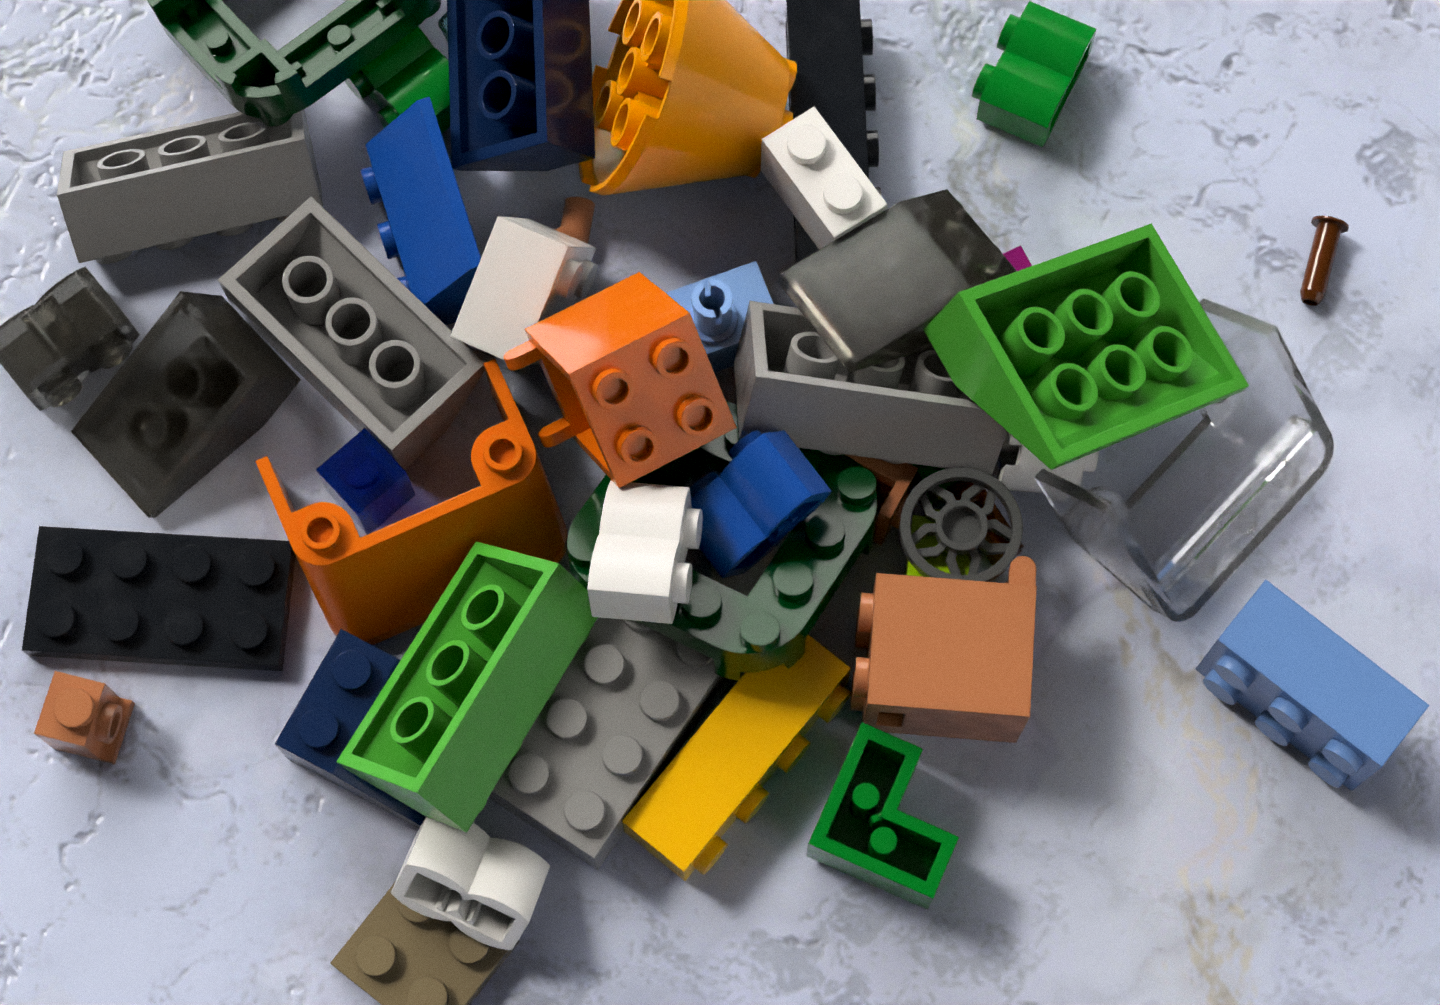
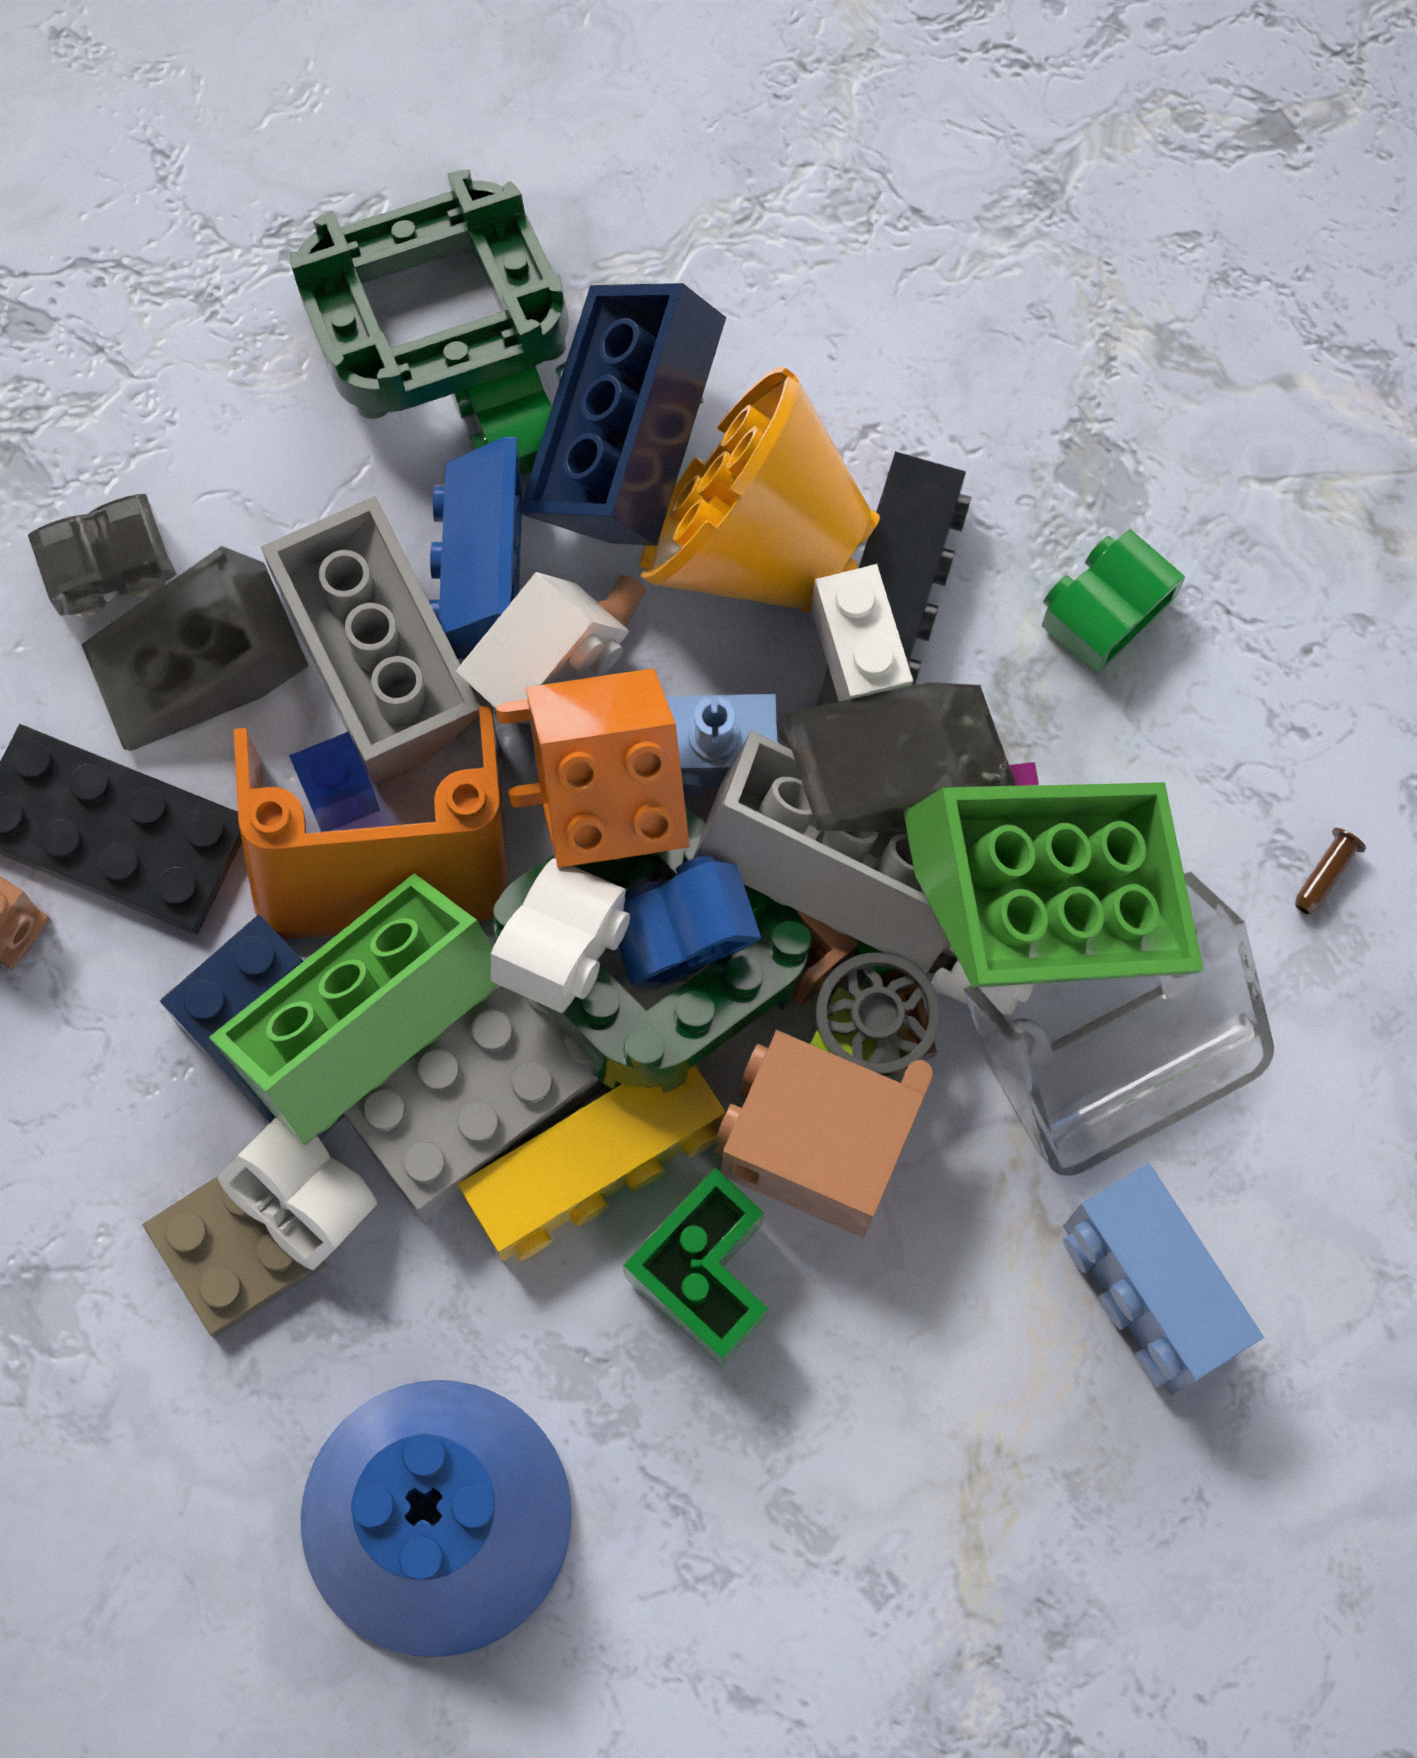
camera: 15 degrees right, 0 degrees up
(184, 184) = (267, 445): light grey slope -> none

